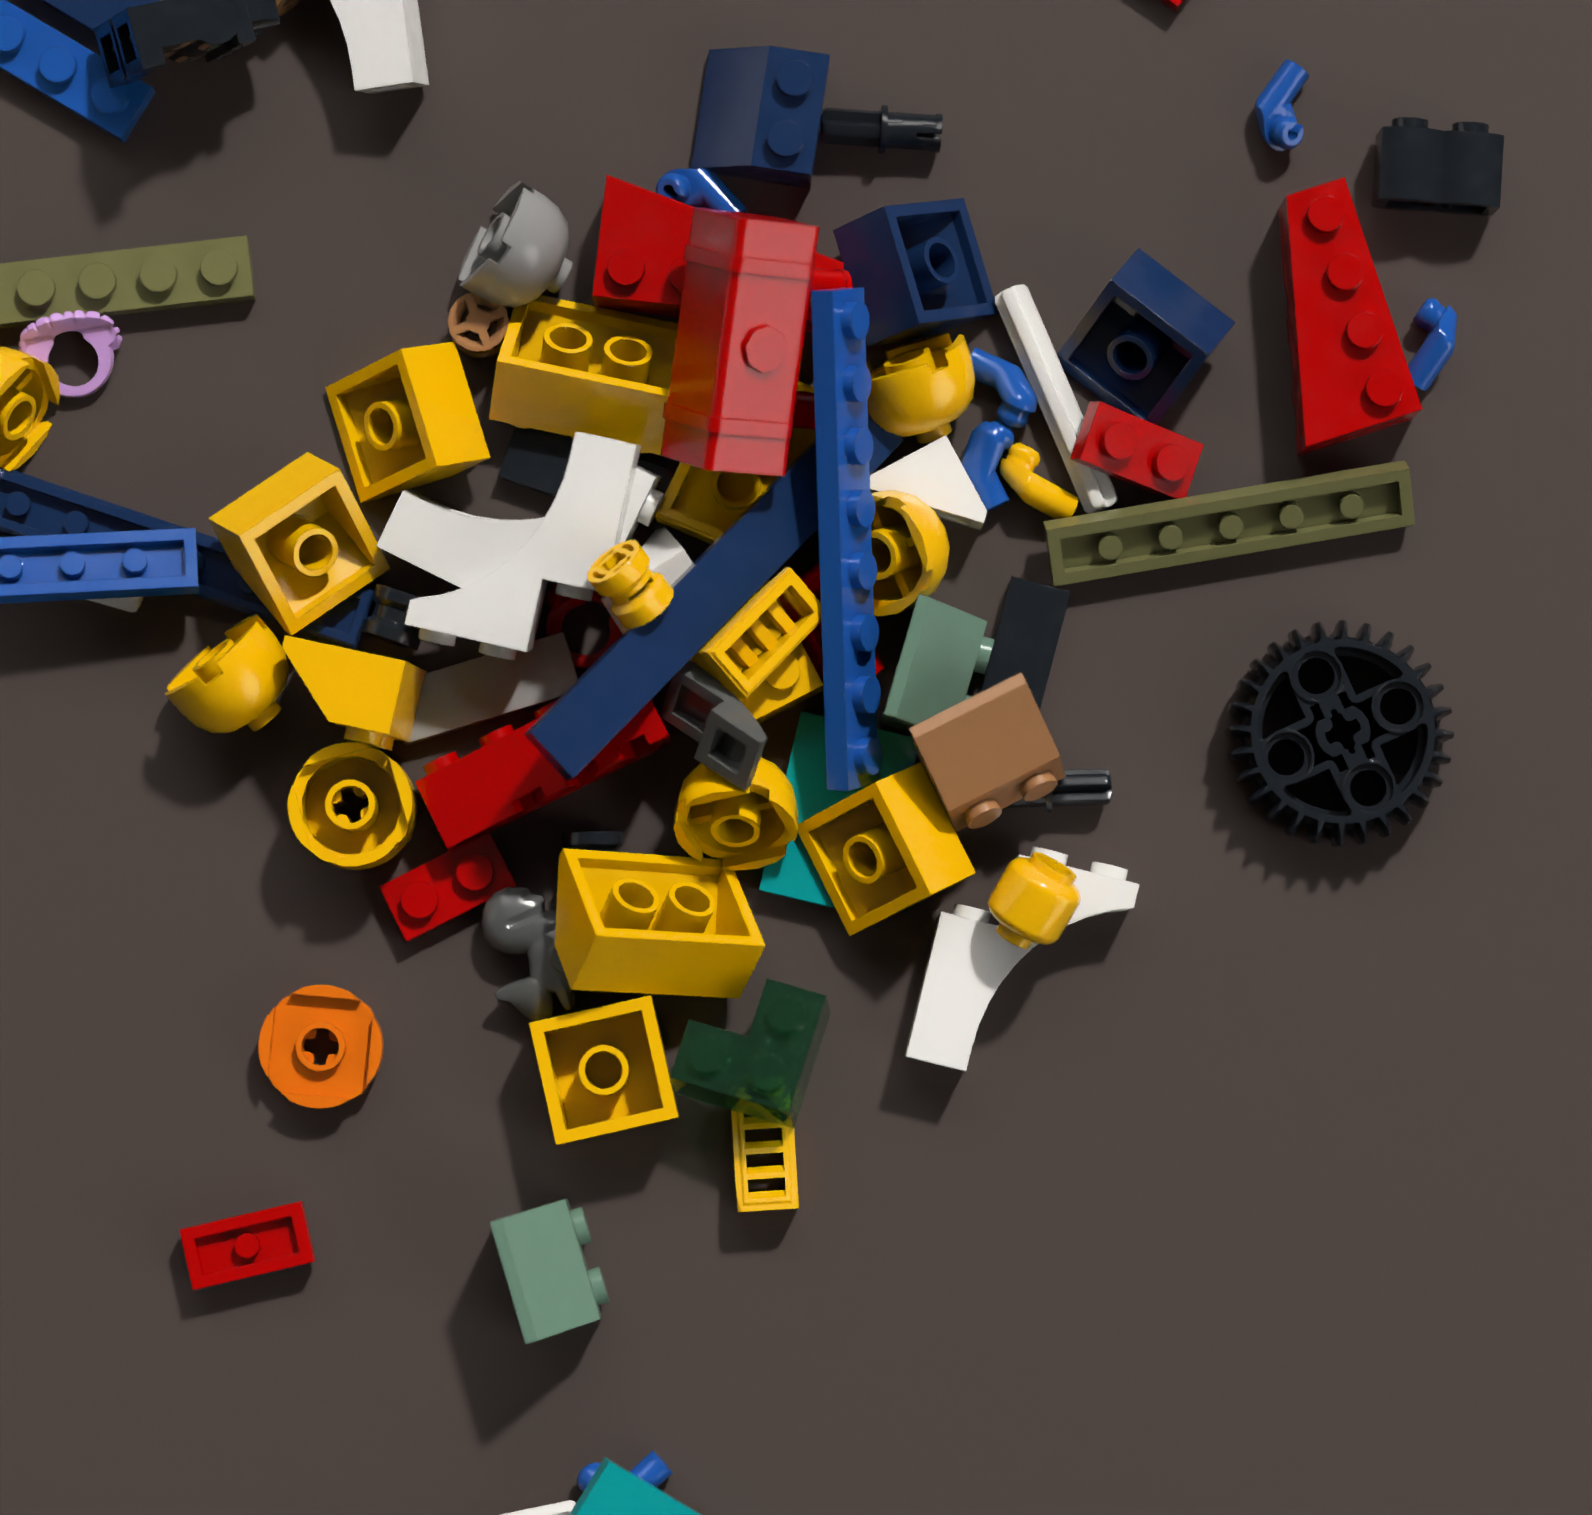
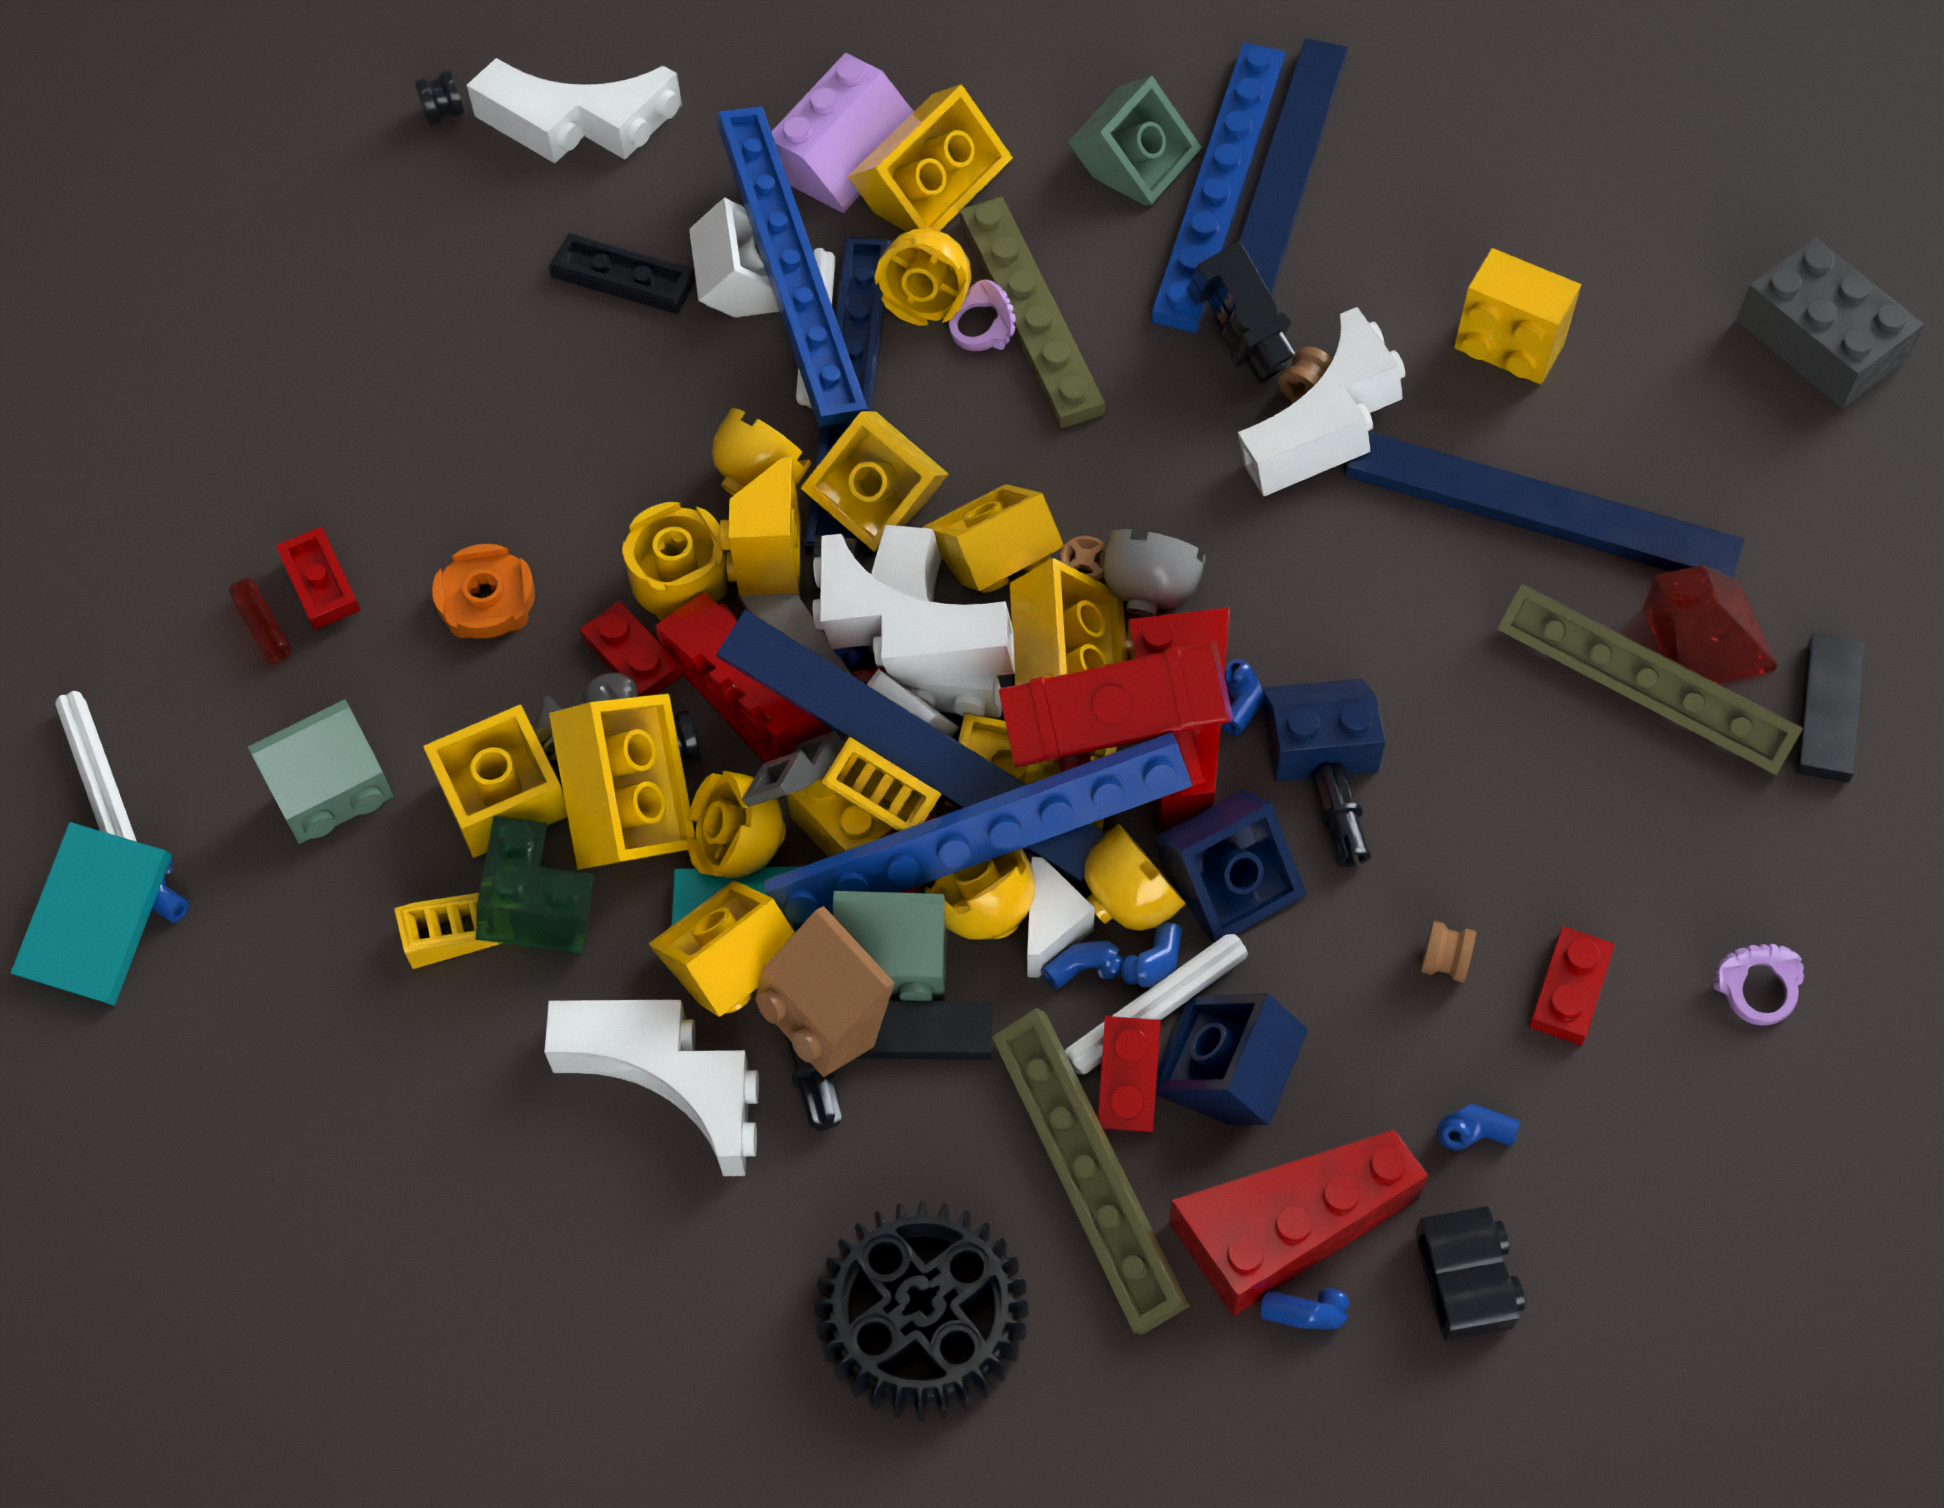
camera: 85 degrees right, 25 degrees down
(287, 1324) = (260, 620): none -> clear red axle
(630, 584) = (898, 657): yellow wheel -> none
(1032, 488) = (1073, 998): yellow arm -> none
(1034, 900) = (701, 1059): yellow head -> none
(1081, 68) = (1448, 951): none -> medium nougat wheel

